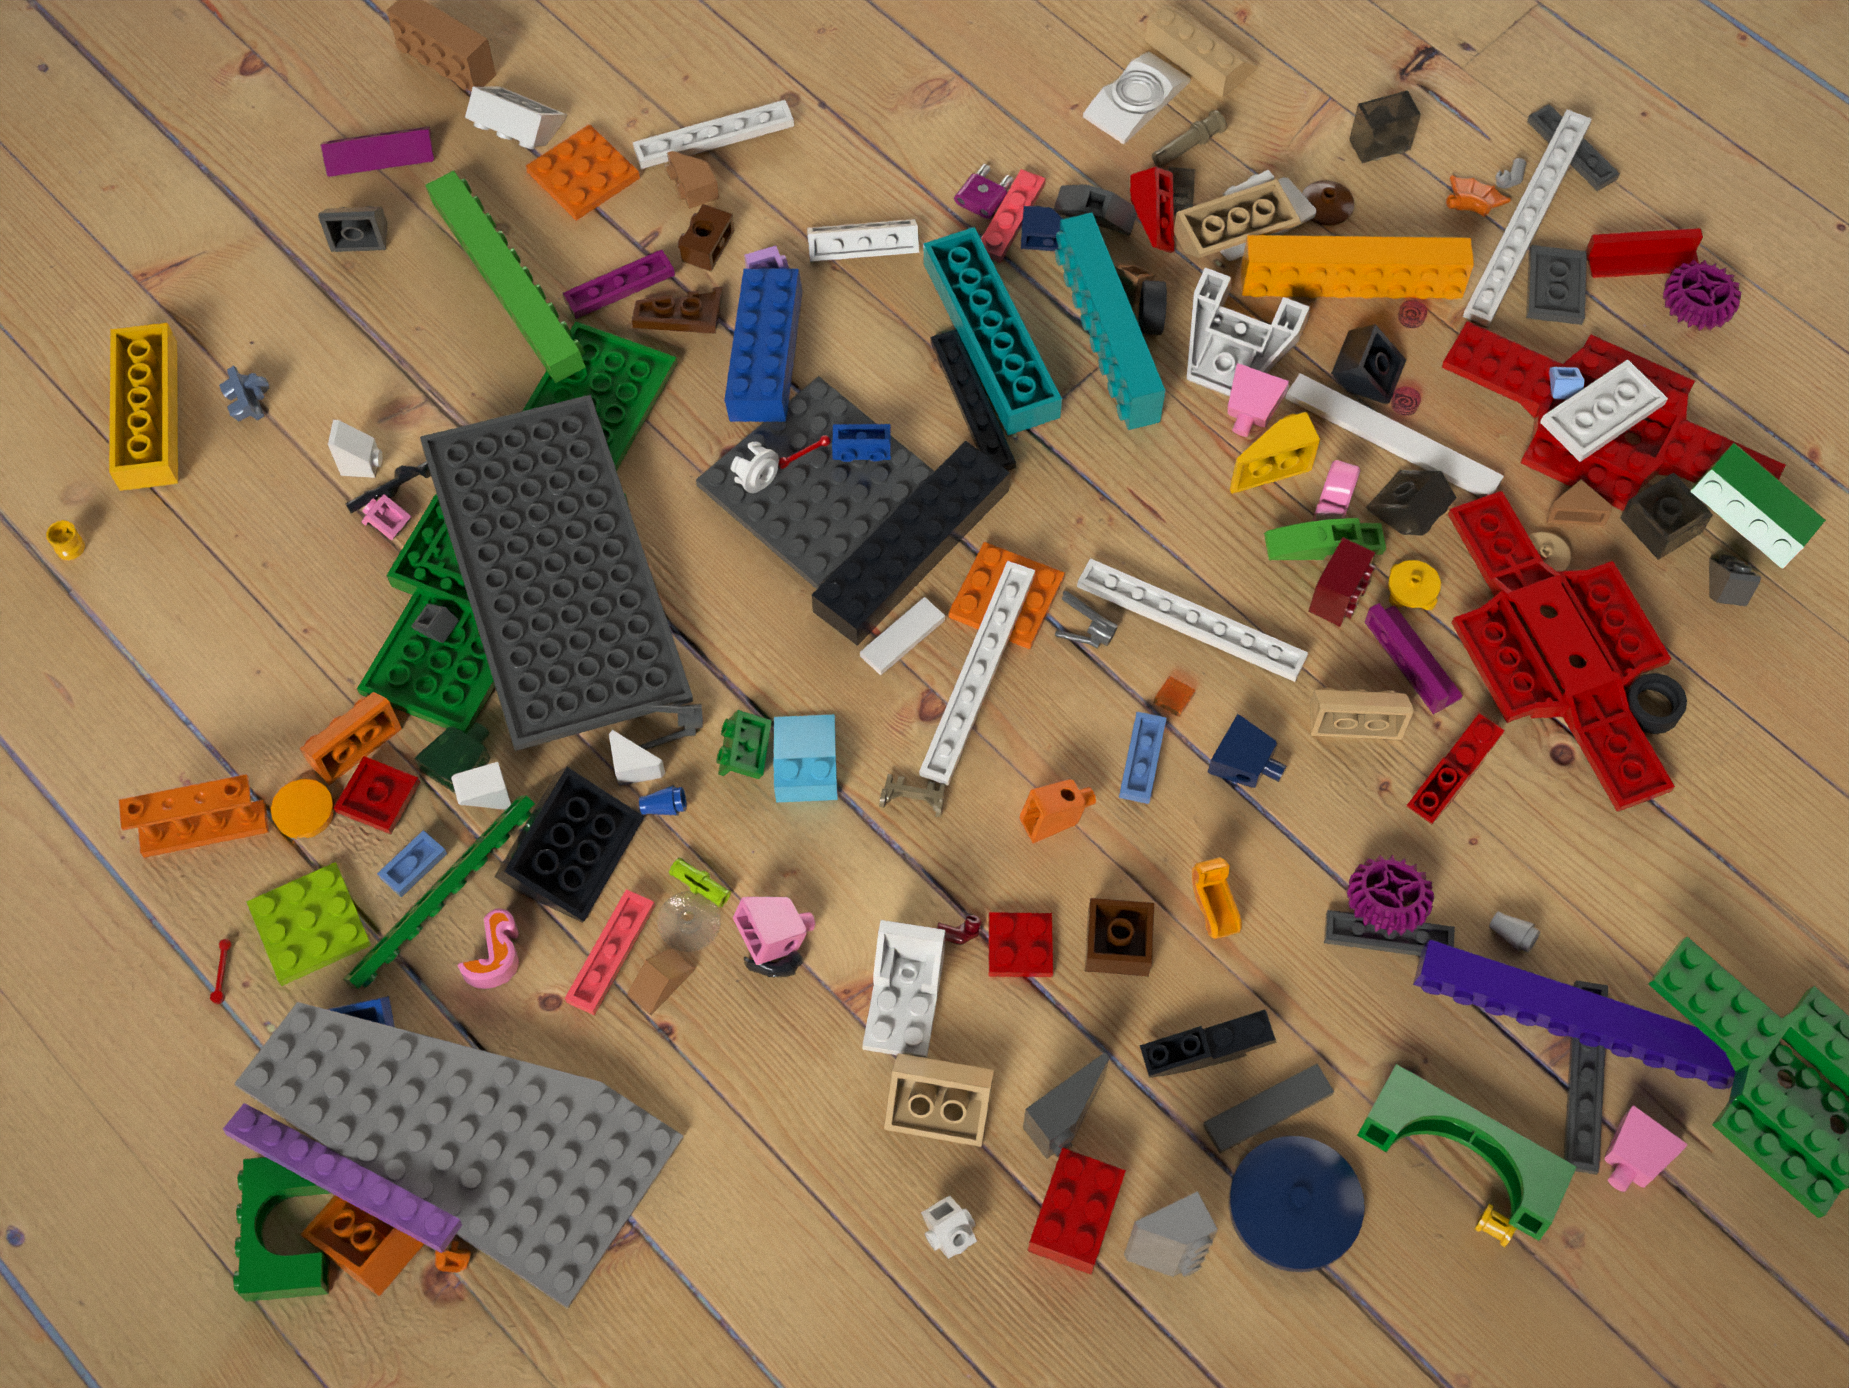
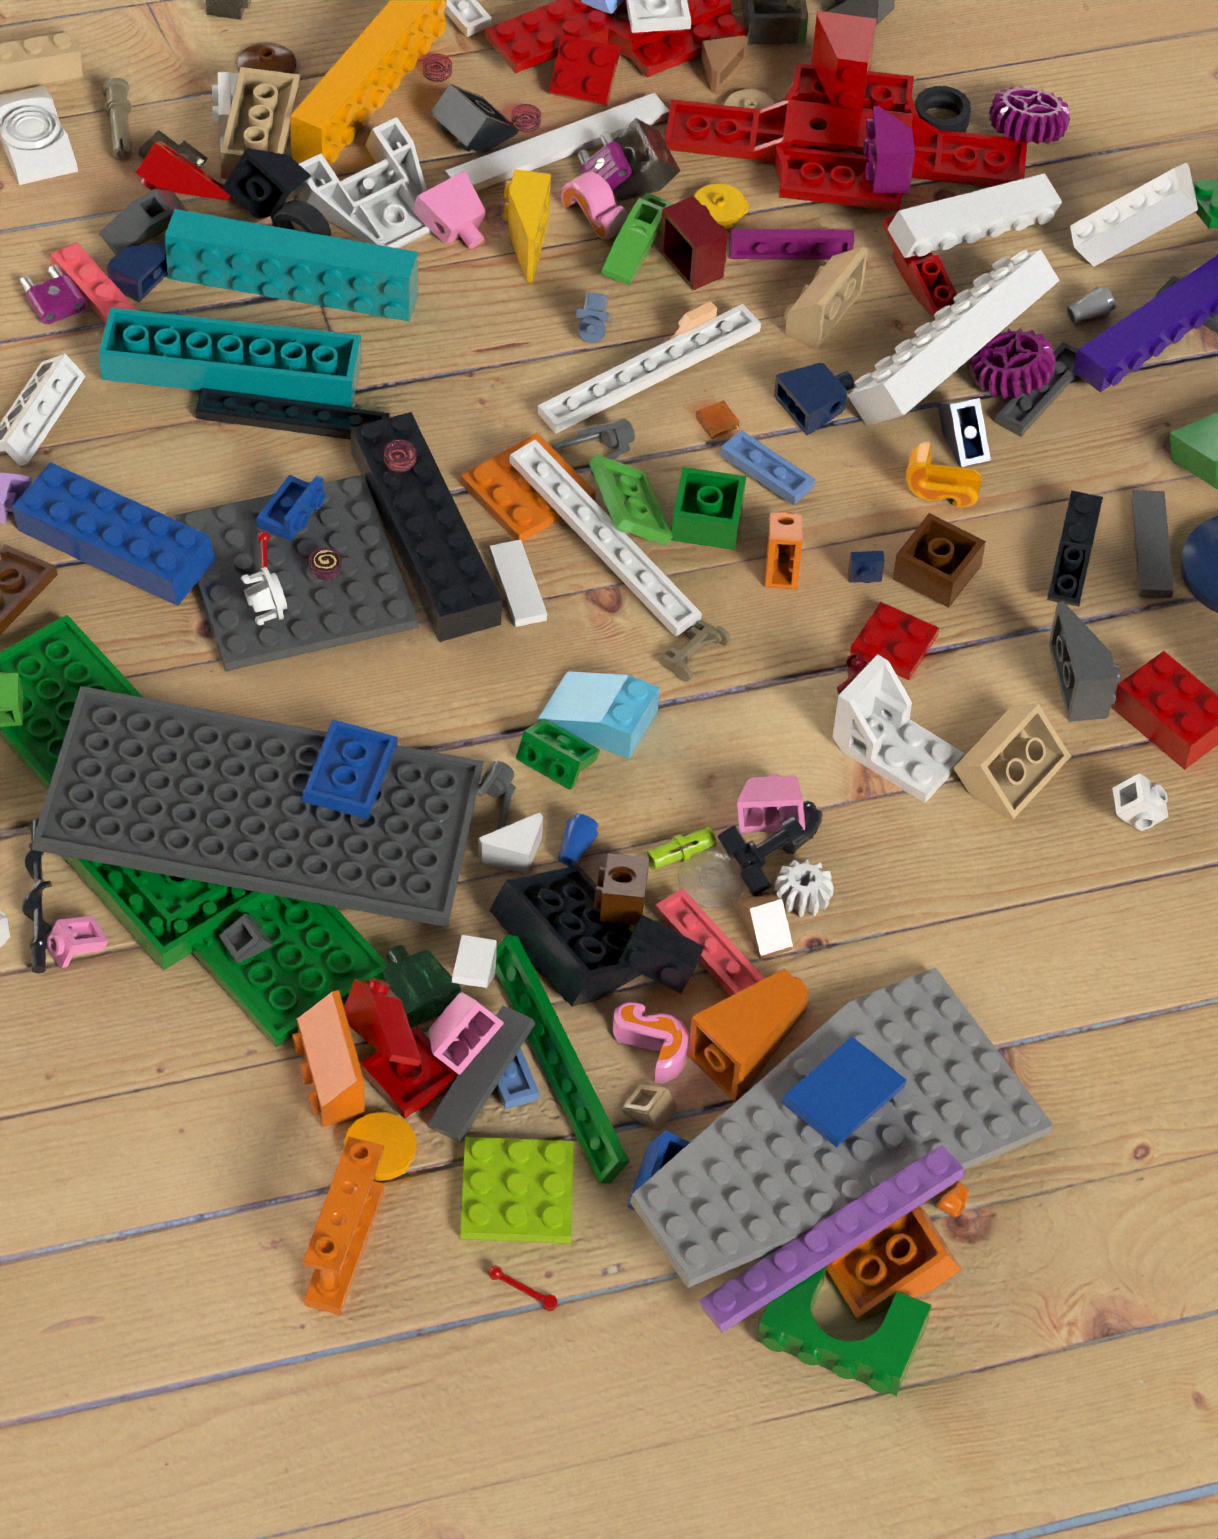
camera: 65 degrees left, 10 degrees down
(390, 751) = (381, 1021): none -> red slope
(392, 843) = (481, 1076): none -> dark grey tile
(432, 806) = (463, 1030): none -> bright pink torso
(435, 981) = (650, 1106): none -> tan slope
(489, 1118) = (844, 1091): none -> blue tile
(529, 1017) = (745, 1030): none -> orange slope
(570, 916) = (661, 954): none -> black brick
(611, 869) = (622, 888): none -> reddish brown brick
(619, 607) = (350, 769): none -> blue tile
(714, 938) = (751, 856): none -> black bar
(718, 987) = (804, 887): none -> white gear
(824, 493) = (325, 563): none -> tile
(950, 485) = (400, 455): none -> clear pink tile
(1027, 671) = (630, 500): none -> bright green plate
(1059, 732) = (708, 508): none -> green brick
(1080, 884) = (866, 566): none -> dark blue plate
(1176, 260) = (265, 182): none -> black slope
(1213, 550) = (594, 315): none -> sand blue hips
(1262, 625) = (694, 318): none -> light nougat tile
(1288, 891) = (965, 430): none -> slope
(1380, 831) = (952, 337): none -> white brick
(1386, 479) = (607, 162): none -> magenta piece
(1481, 412) = (584, 70): none -> red plate
(1535, 676) = (889, 153): none -> magenta slope
(1537, 784) = (974, 216): none -> white brick
(1629, 592) = (843, 57): none -> red slope
(1631, 914) = (1135, 216): none -> white slope
(1702, 774) = (1029, 115): none -> magenta gear

